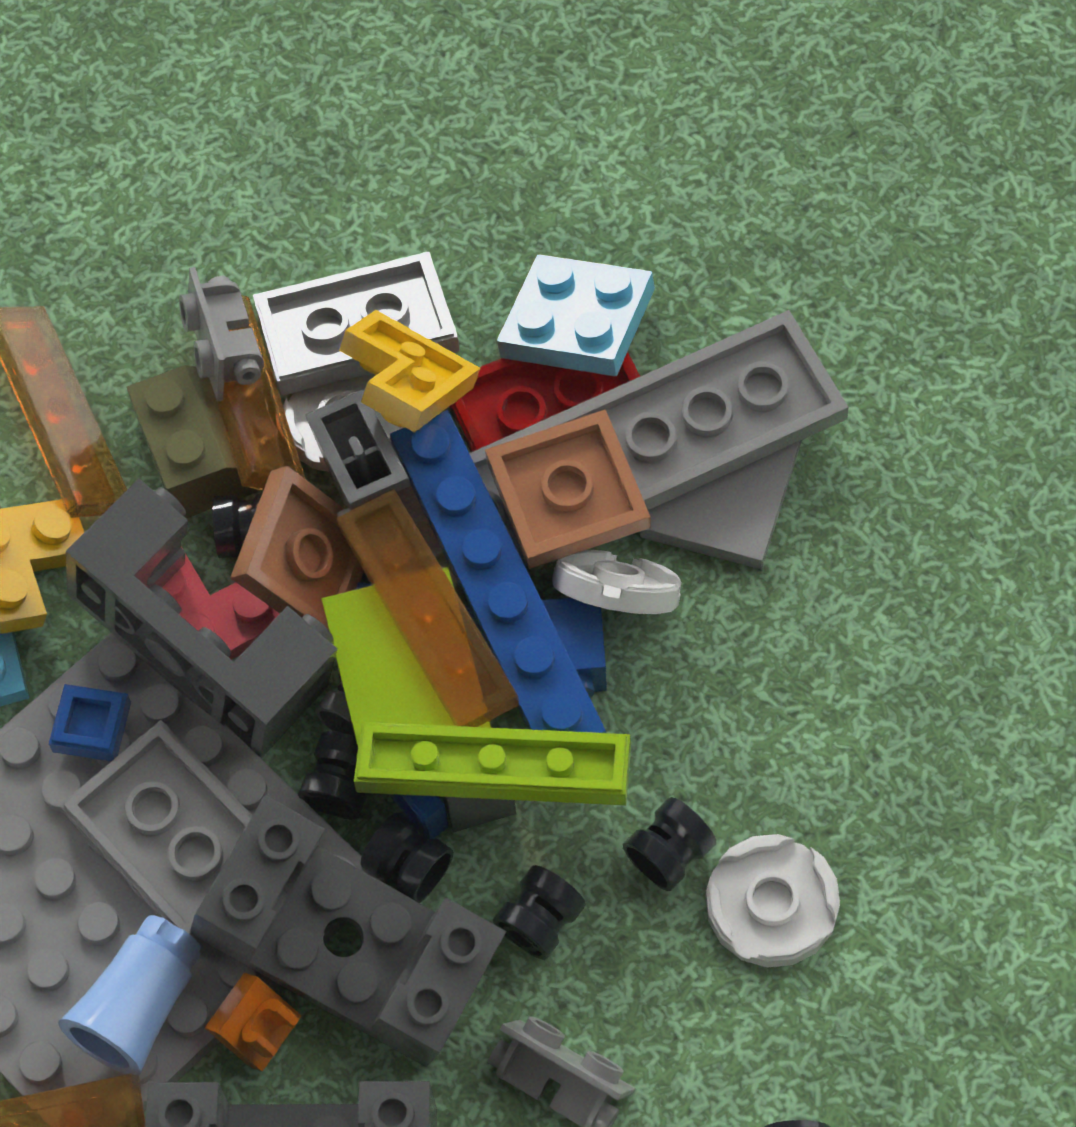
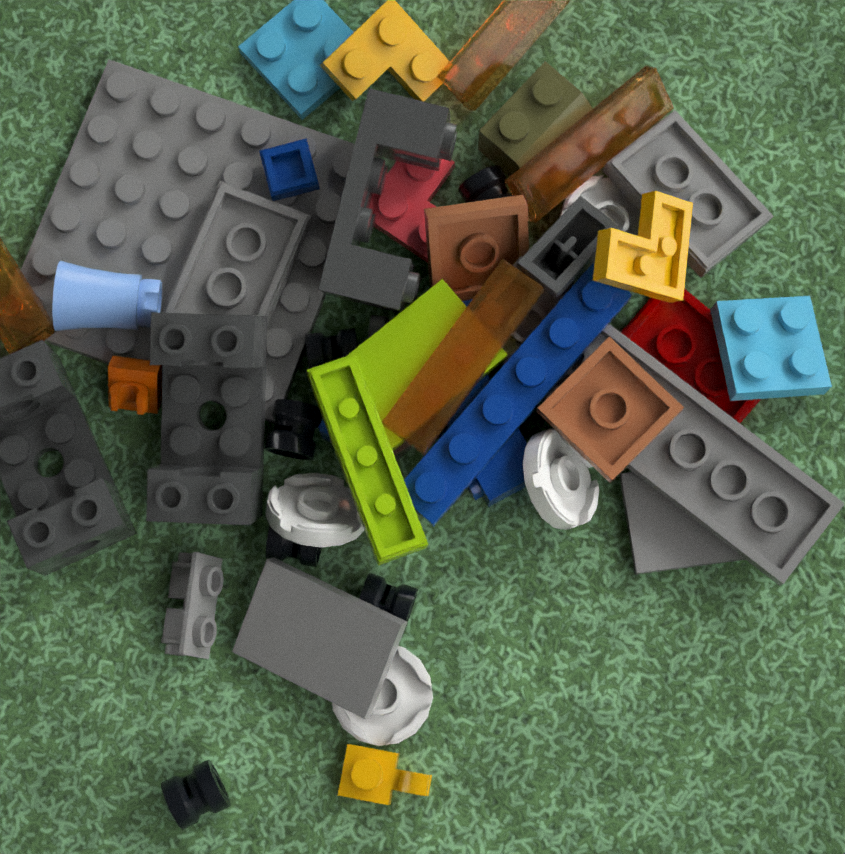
camera: 65 degrees right, 15 degrees up
(219, 353) = (601, 115): light grey hinge -> none
(522, 867) = (314, 511): none -> white tile
(673, 929) = (319, 637): none -> light grey tile
(865, 948) = (373, 776): none -> yellow plate

